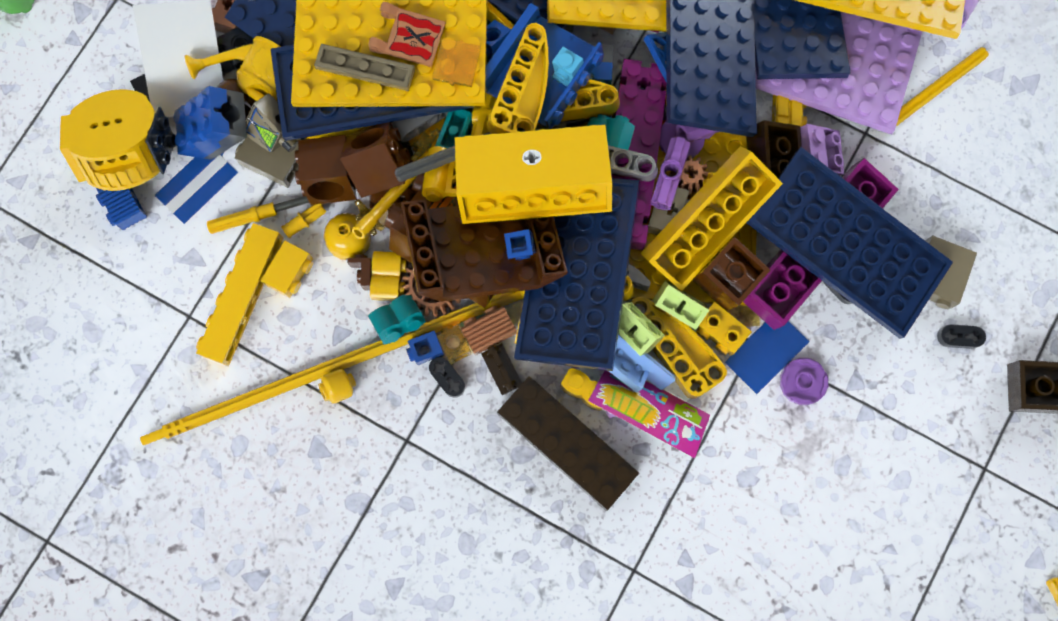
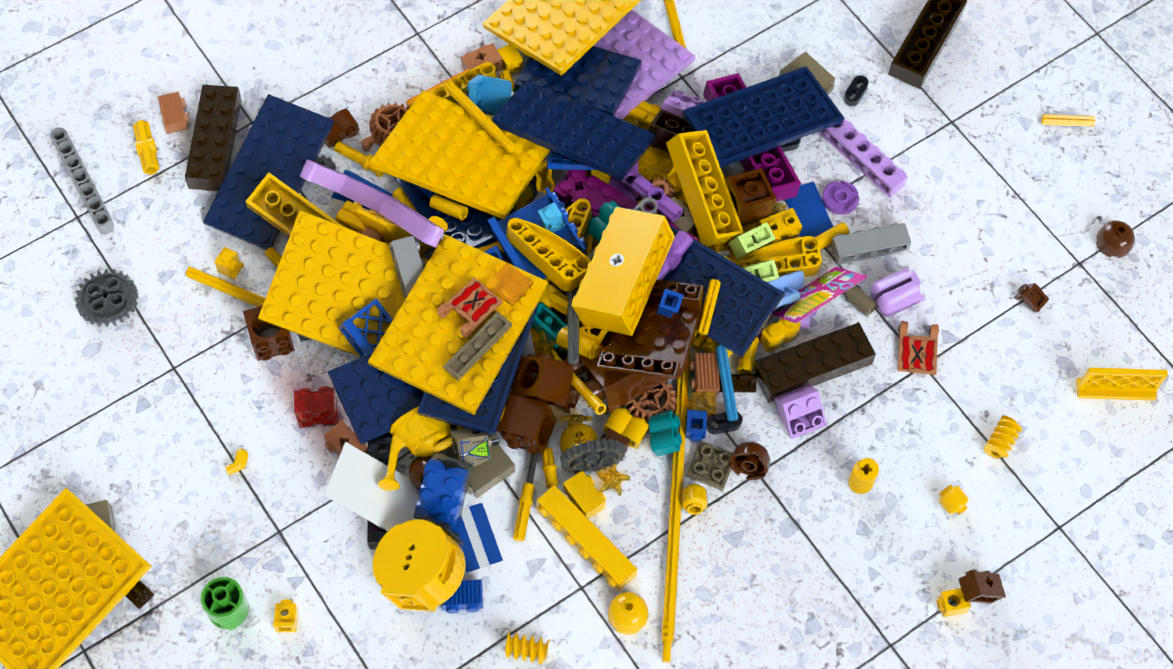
camera: 65 degrees left, 15 degrees down
(25, 48) = (289, 622): none -> yellow brick
(88, 291) = (526, 648): none -> yellow piece
(178, 377) = (629, 620): none -> yellow cylinder
(321, 254) = (592, 456): none -> dark grey gear
(322, 290) = (612, 480): none -> clear yellow animal
(389, 387) = (710, 466): none -> dark tan tile
(412, 425) = (750, 459): none -> reddish brown cylinder
(442, 570) = (863, 475): none -> yellow piece
(483, 359) = (726, 382): none -> dark azure axle
(500, 454) = (801, 410): none -> lavender slope
(535, 369) = (746, 362): none -> yellow piece
(553, 293) = (708, 308): none -> yellow axle
(593, 223) = (679, 246): none -> medium lavender piece
(616, 38) = (525, 199): none -> yellow piece
(633, 49) = (543, 178): none -> yellow brick
(645, 557) = (917, 353): none -> flag
(675, 466) = (860, 300): none -> dark tan piece
(697, 508) = (897, 292): none -> lavender cylinder
(744, 392) = (826, 237): none -> yellow piece
(757, 443) = (870, 243): none -> light grey brick
(850, 429) = (863, 160): none -> lavender brick

